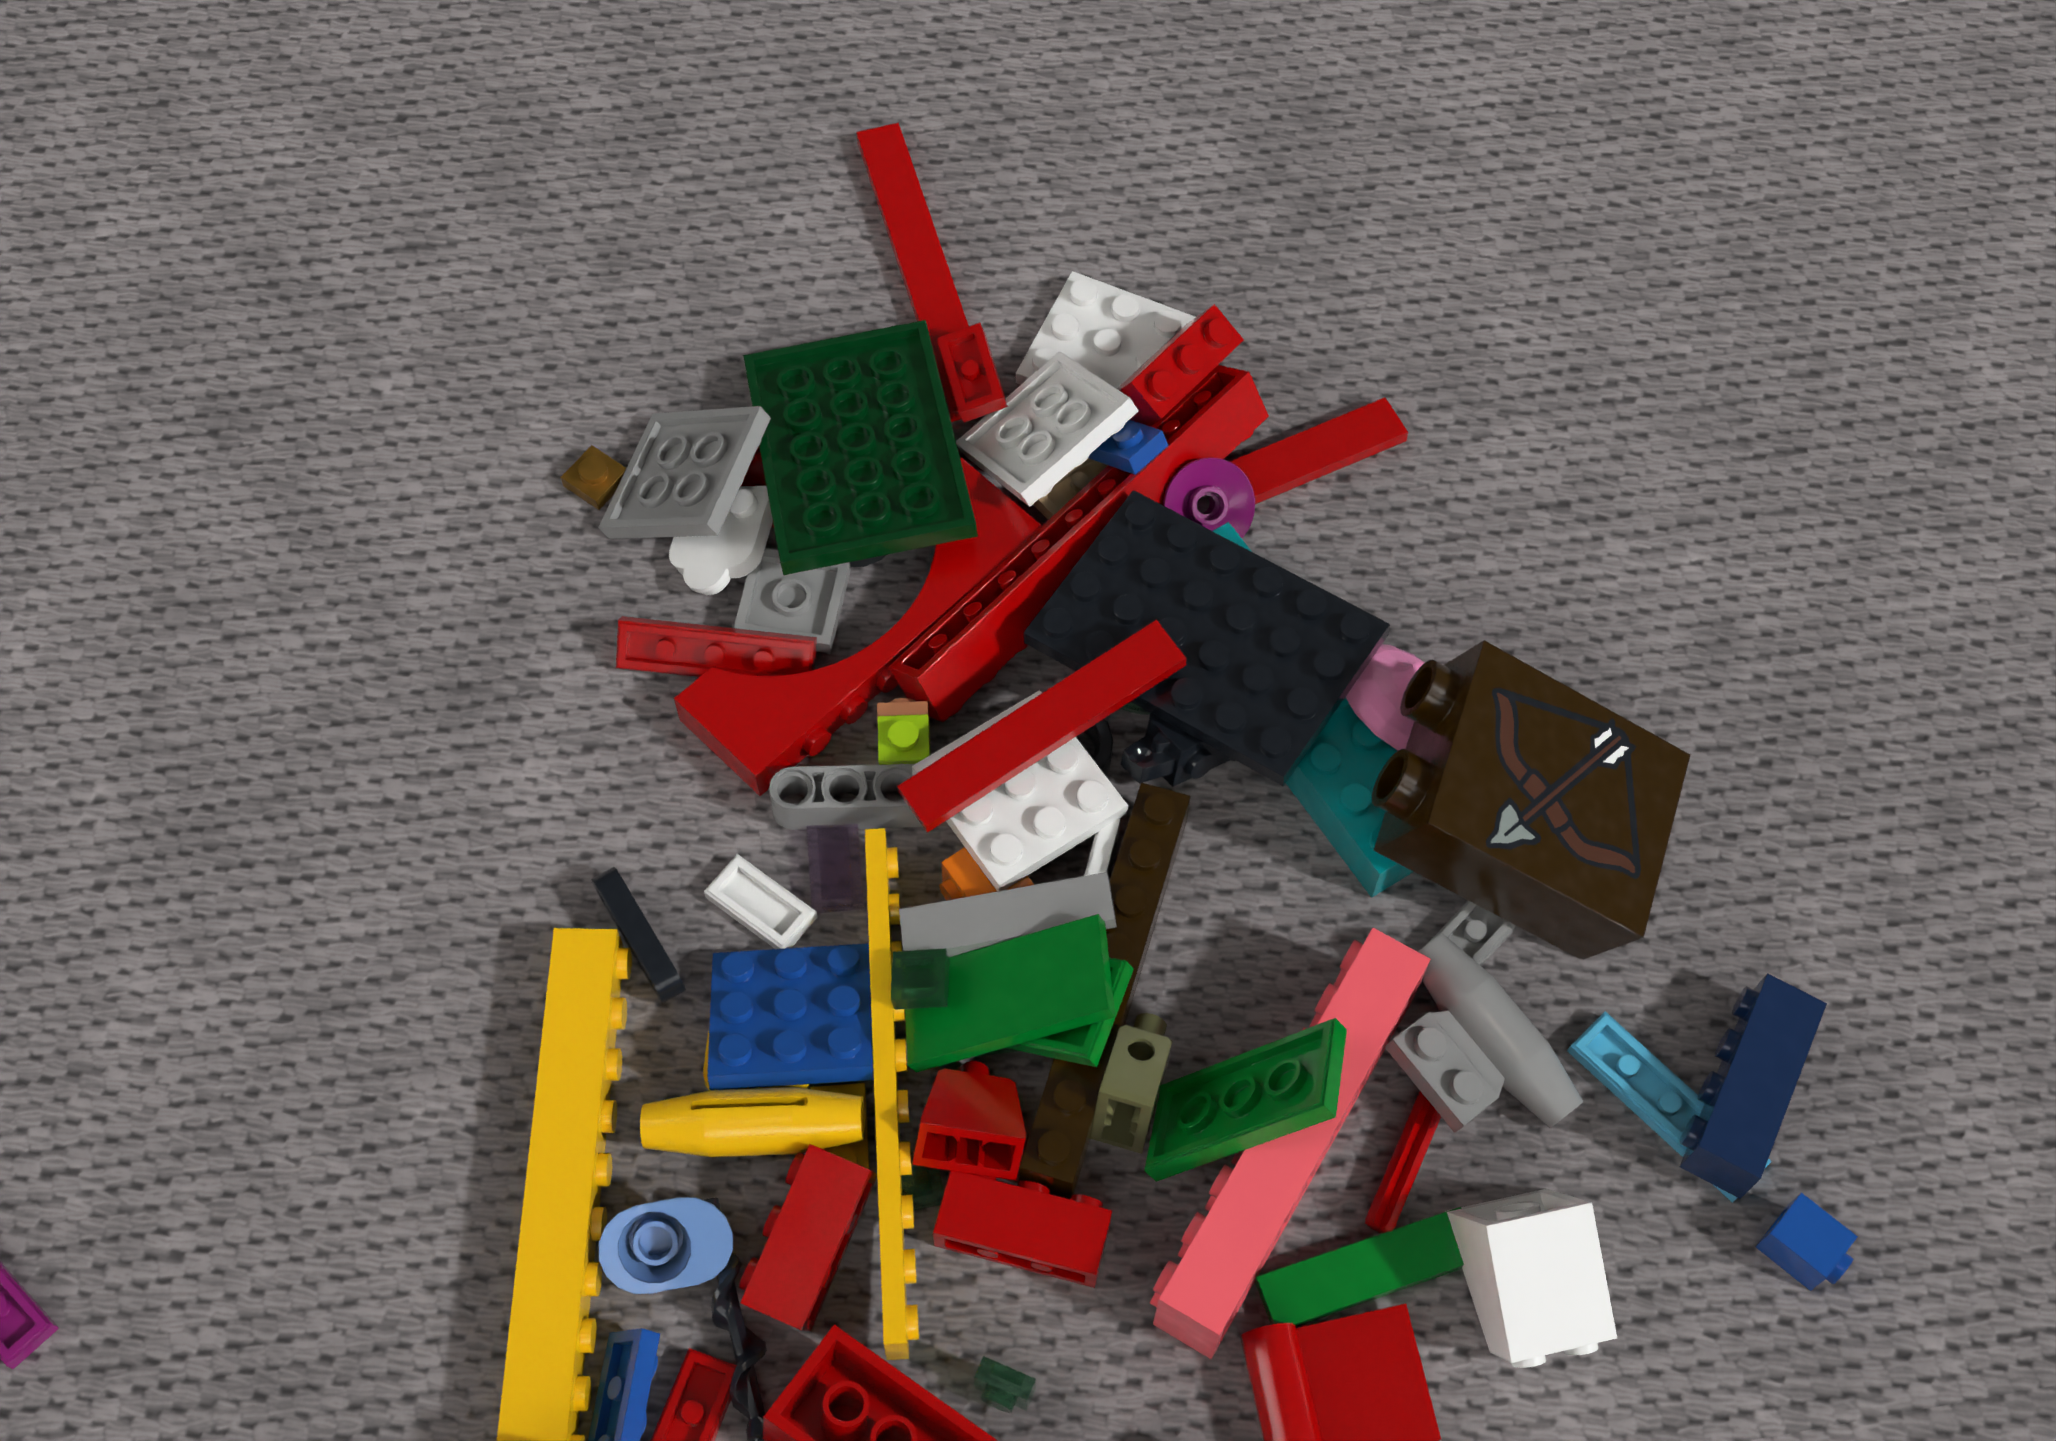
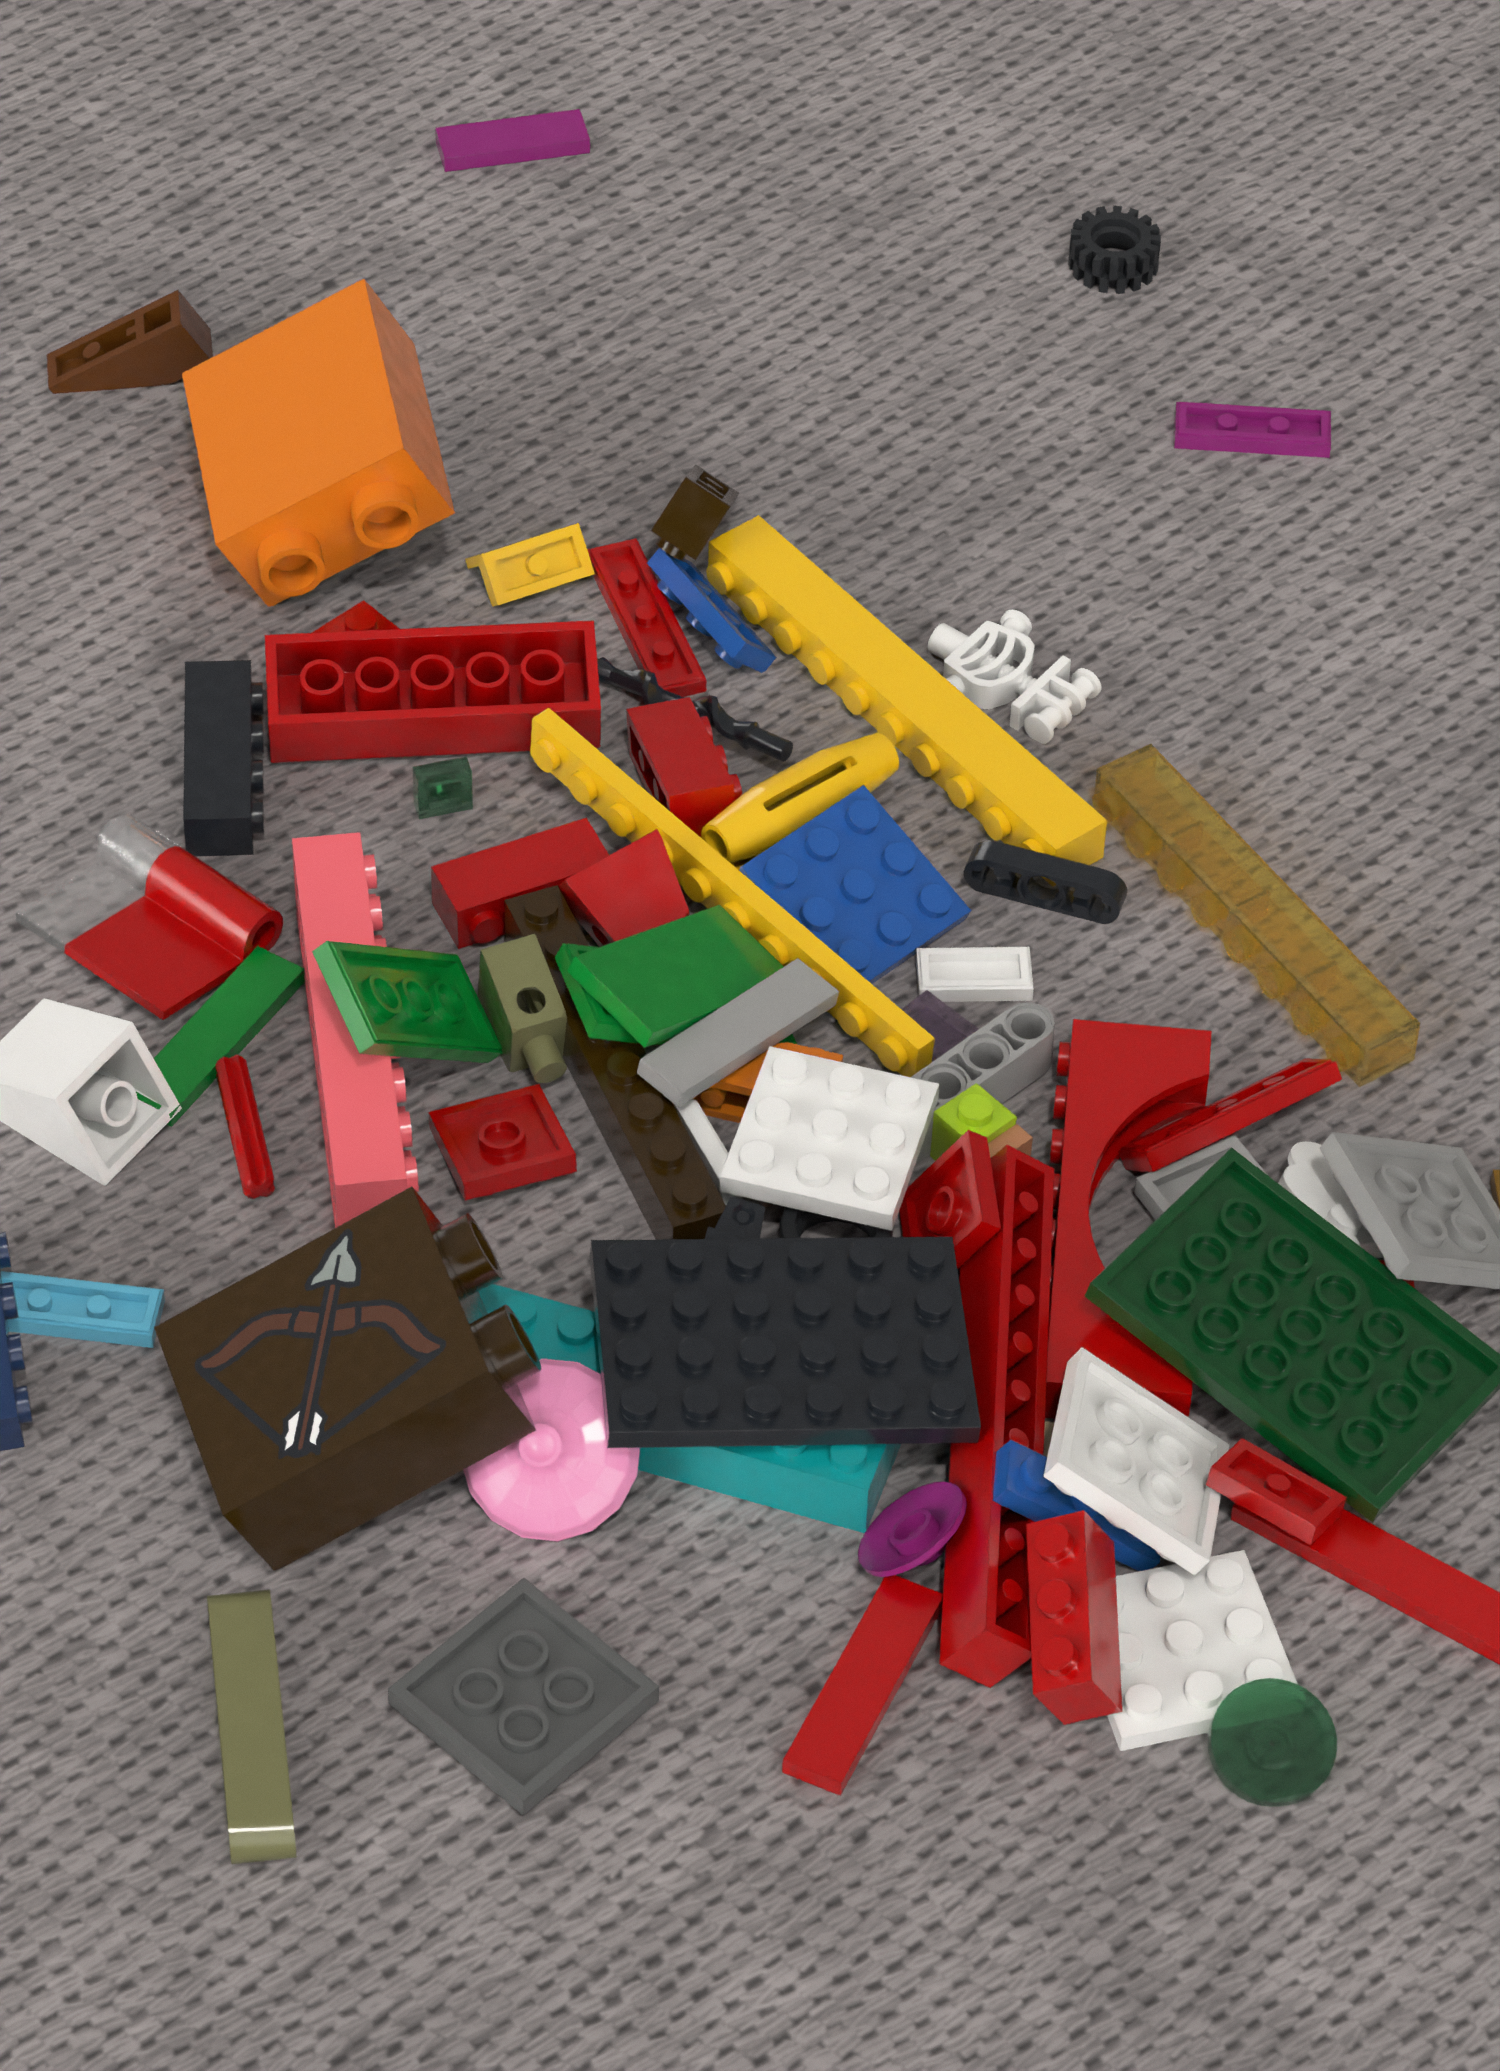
camera: 140 degrees right, 15 degrees down
(462, 1202) = (993, 681): none -> white piece
(526, 805) = (1256, 916): none -> clear yellow brick
(665, 1245) = (793, 704): medium blue piece -> none
(920, 979) = (764, 943): clear green plate -> none
(983, 679) = (955, 1198): none -> red plate
(1041, 725) = (846, 1152): red tile -> none
(1116, 258) = (1277, 1714): none -> clear green piece
(1227, 996) = (502, 1142): none -> red plate
(1478, 1046) = (248, 1210): light grey plate -> none
(1537, 574) = (523, 1695): none -> dark grey plate
(1730, 664) = (251, 1727): none -> olive beam

